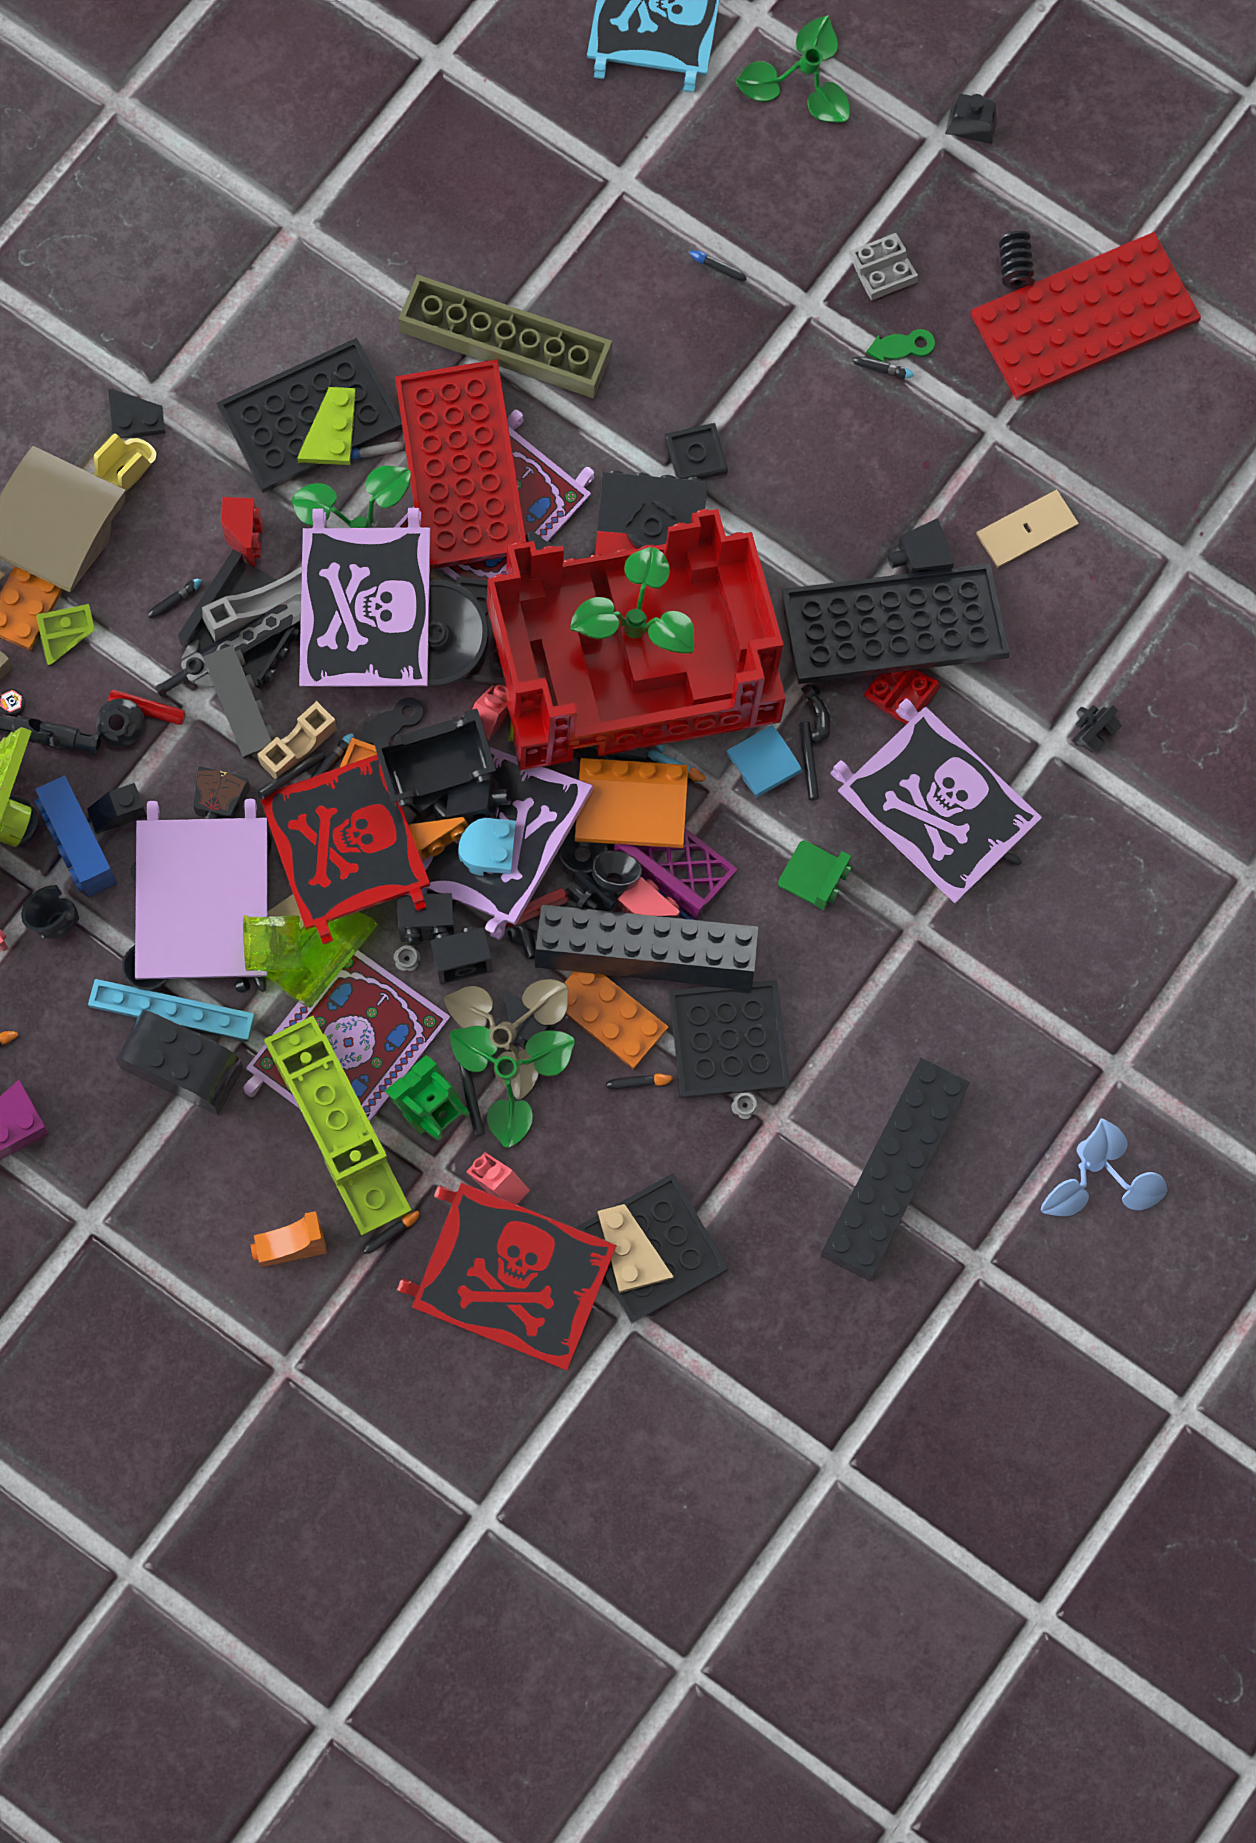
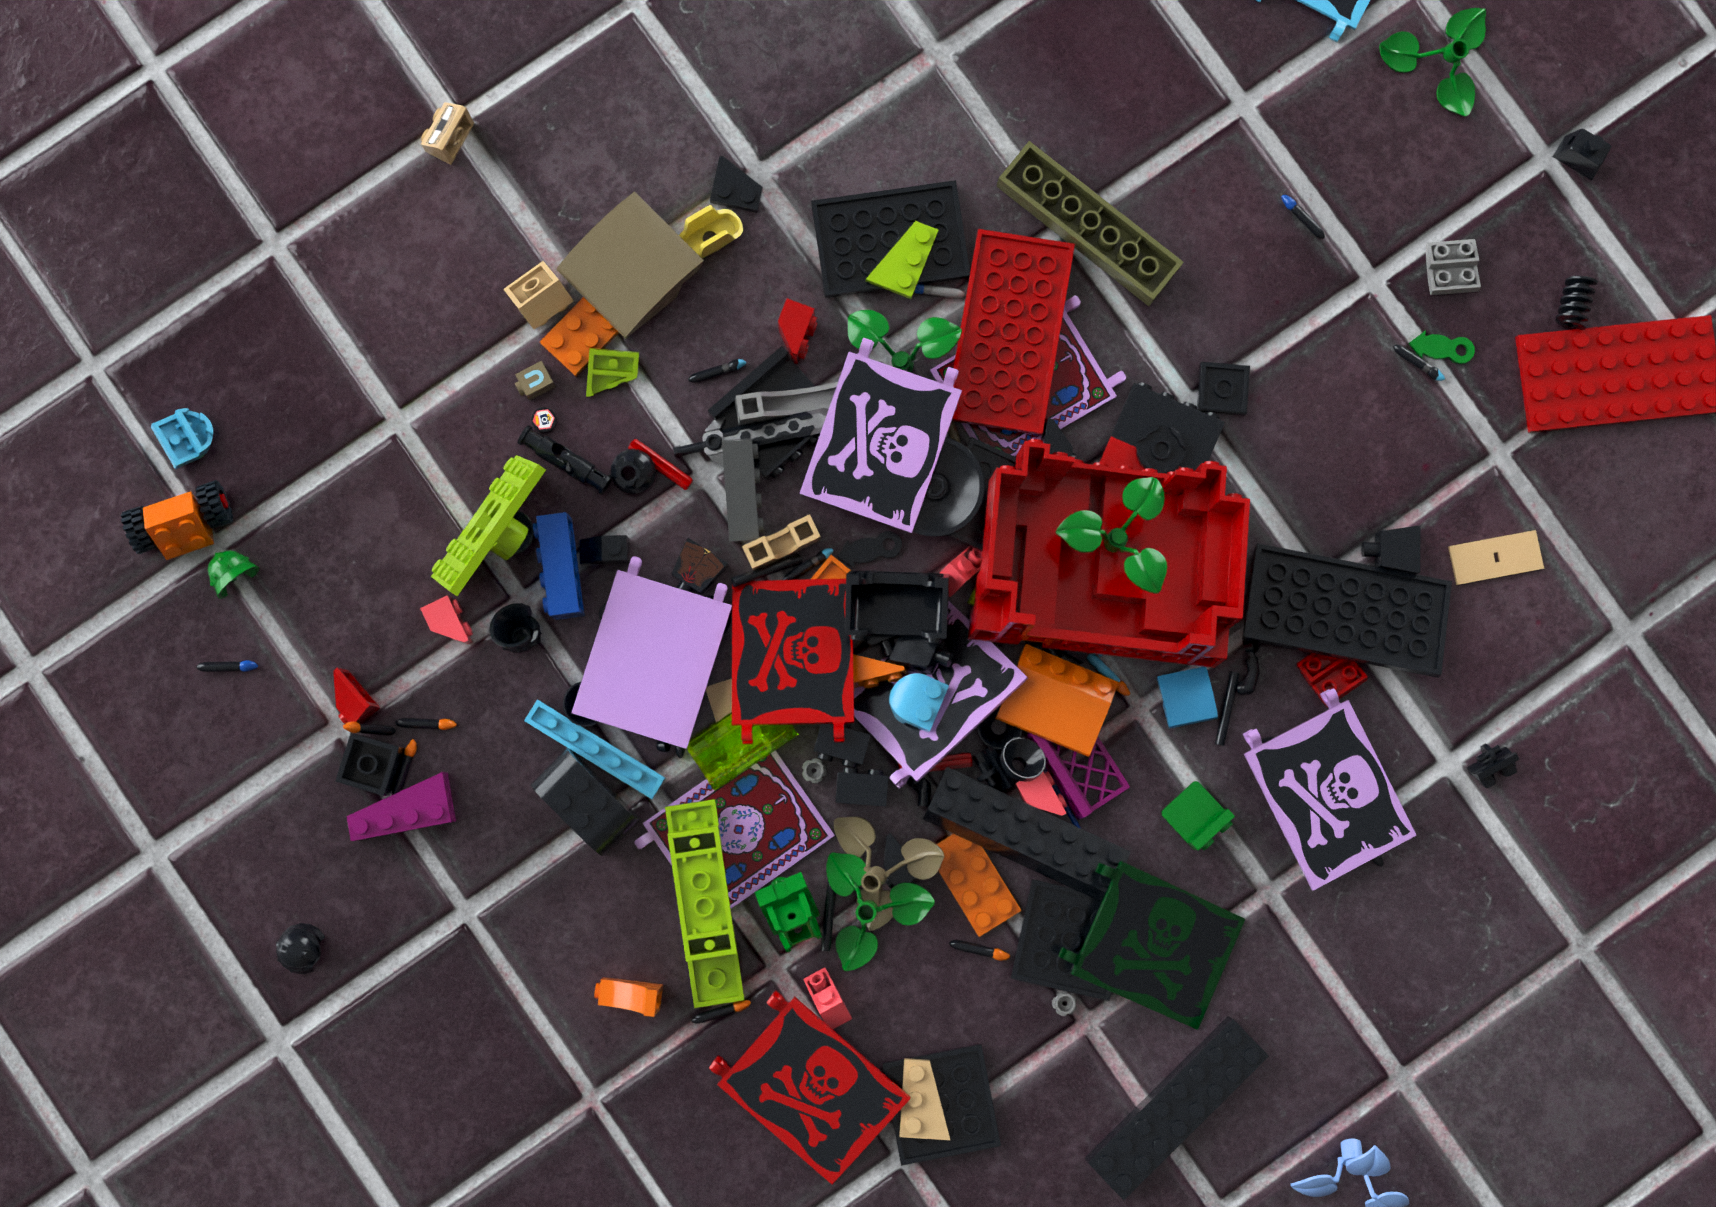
camera: 15 degrees right, 10 degrees up
(272, 943) = (699, 723): clear neon green slope -> none
(817, 1010) = (1156, 945): none -> flag

